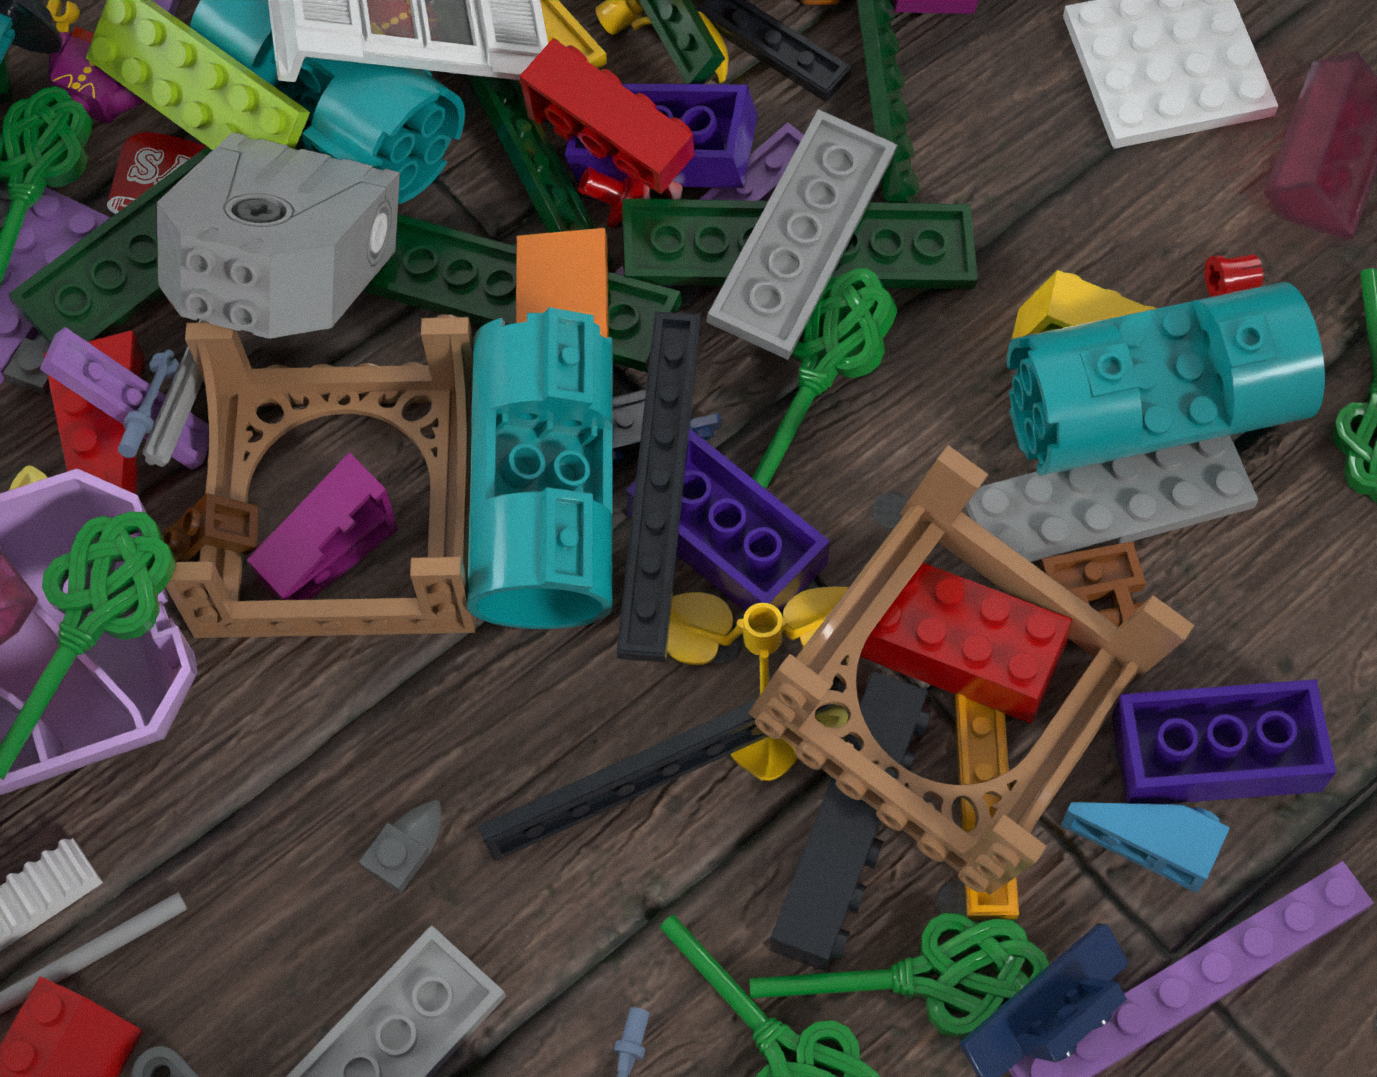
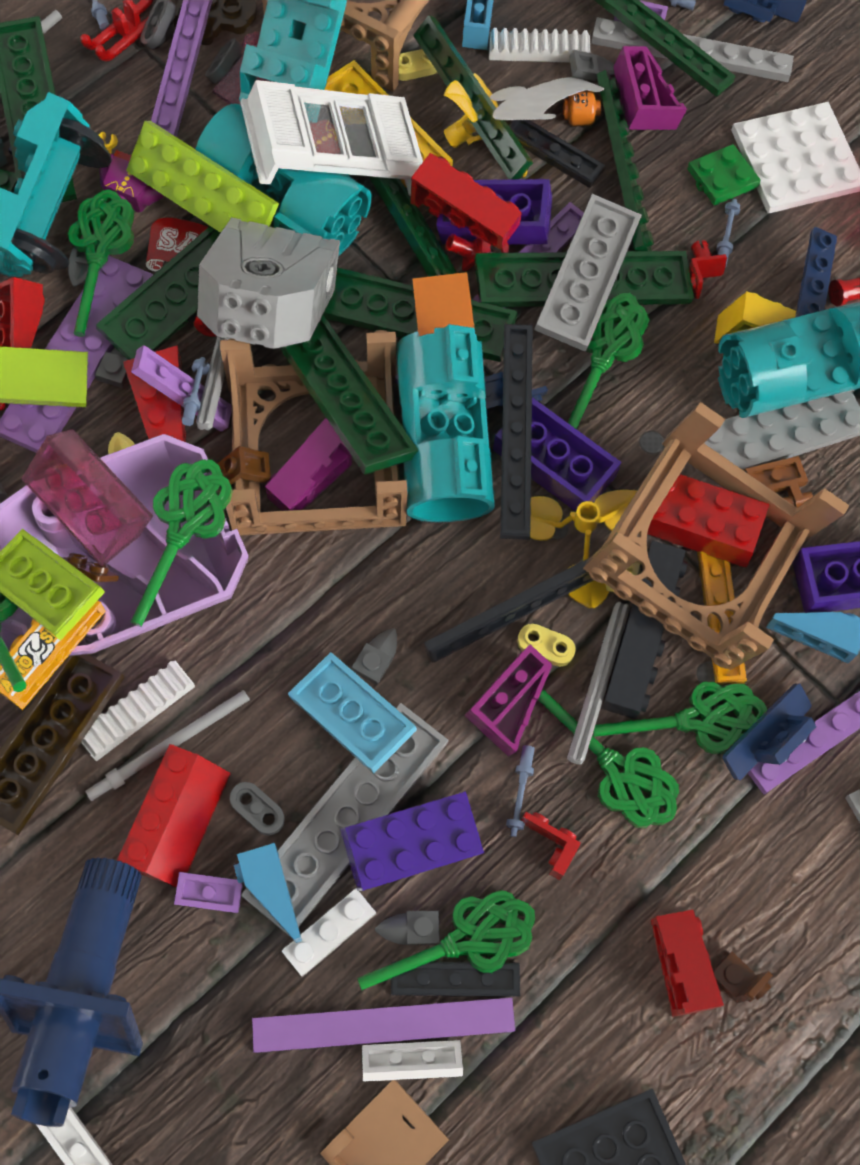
camera: 10 degrees left, 5 degrees up
(349, 938) = (352, 712): none -> medium azure plate
(389, 425) = (349, 400): none -> dark green plate
(611, 927) = (509, 701): none -> magenta wedge
(683, 840) = (547, 644): none -> light yellow plate
(763, 911) = (598, 684): none -> light grey axle
(1000, 228) = (704, 266): none -> red bracket
(1037, 200) = (725, 247): none -> sand blue piece
(1043, 86) = (723, 174): none -> green plate
(1180, 242) = (816, 272): none -> dark blue bracket

